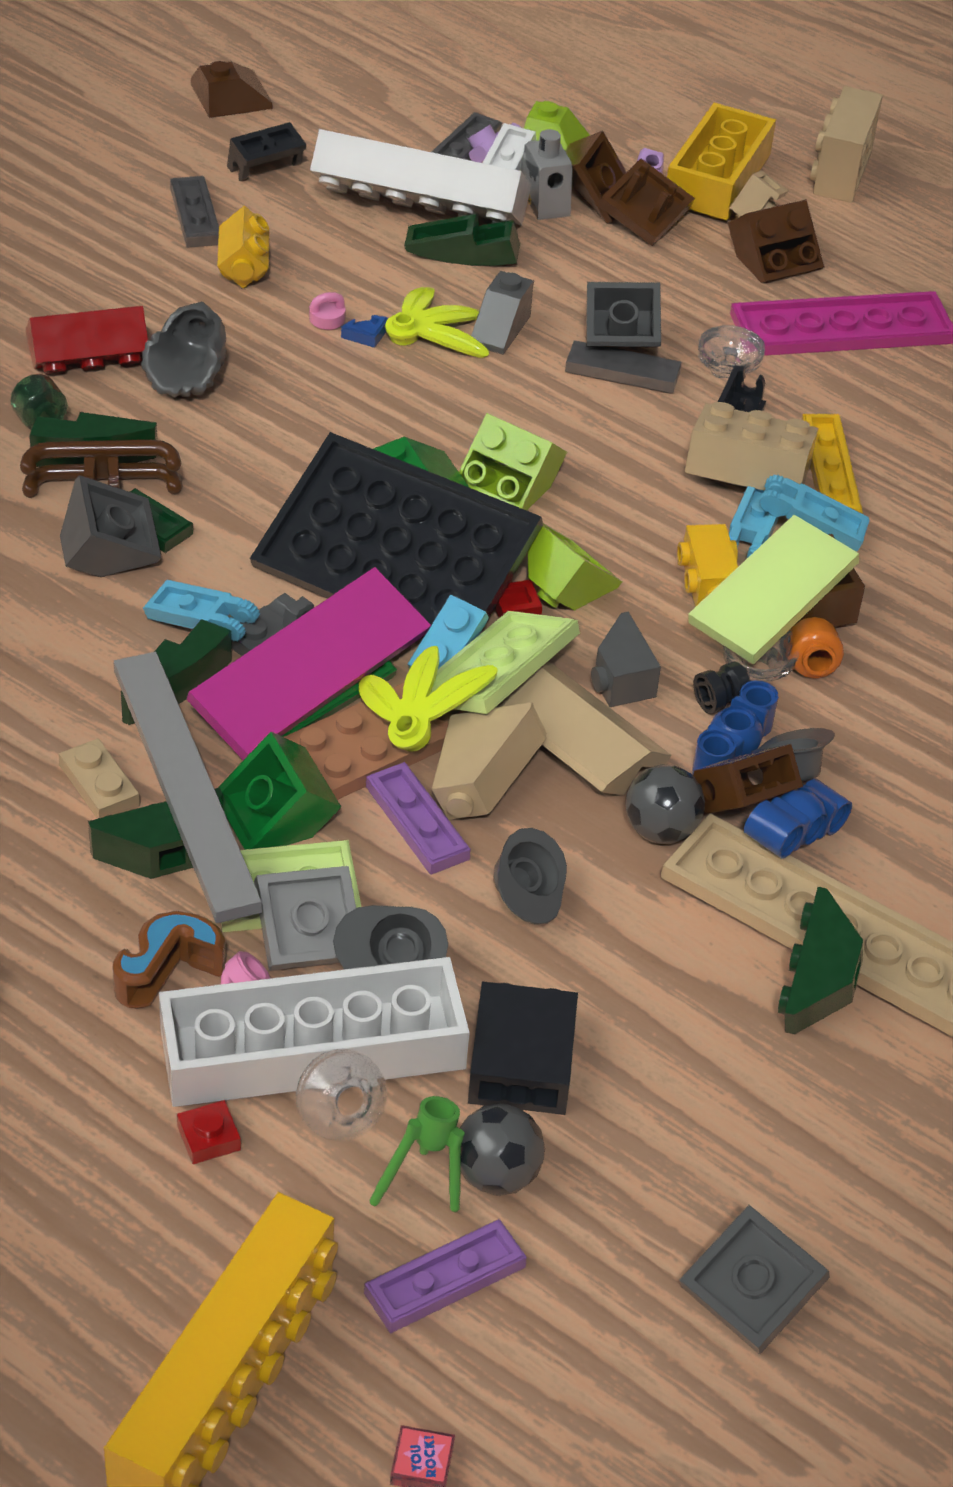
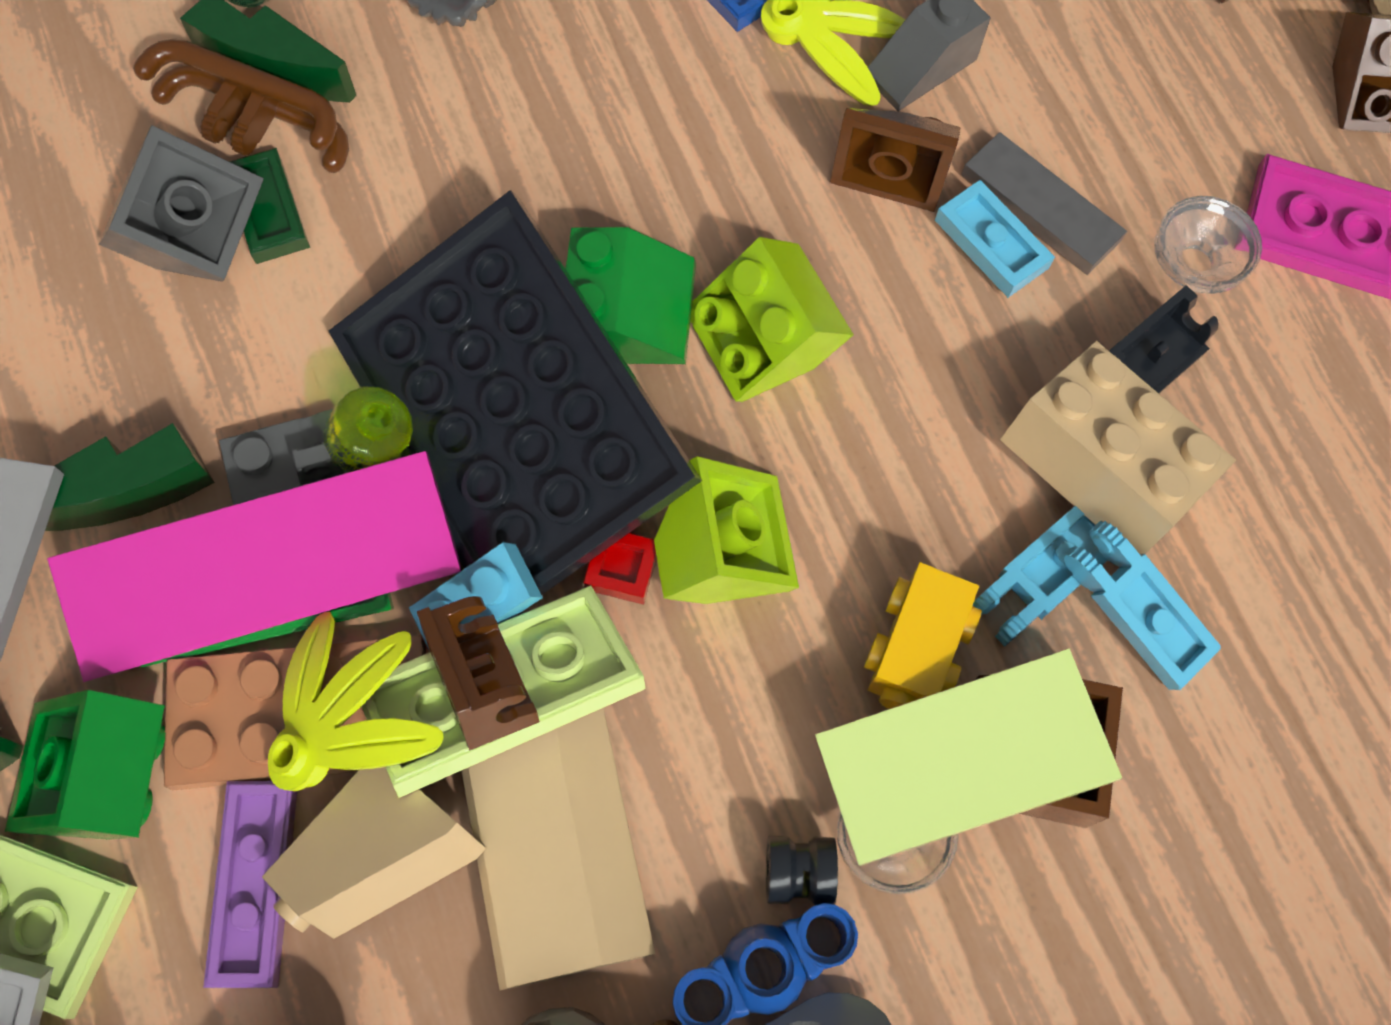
camera: 30 degrees right, 25 degrees up
(188, 604) = (200, 395): medium azure hinge -> none
(326, 573) = (367, 429): none -> clear neon green head
(484, 646) = (477, 672): none -> reddish brown hinge
(528, 364) = (894, 155): none -> reddish brown slope
(609, 389) = (994, 238): none -> medium azure plate
(623, 314) = (1082, 127): dark grey slope -> none
(625, 665) = (688, 755): dark grey slope -> none
(818, 647) = (984, 867): orange head -> none
(831, 461) = (1232, 512): yellow tile -> none

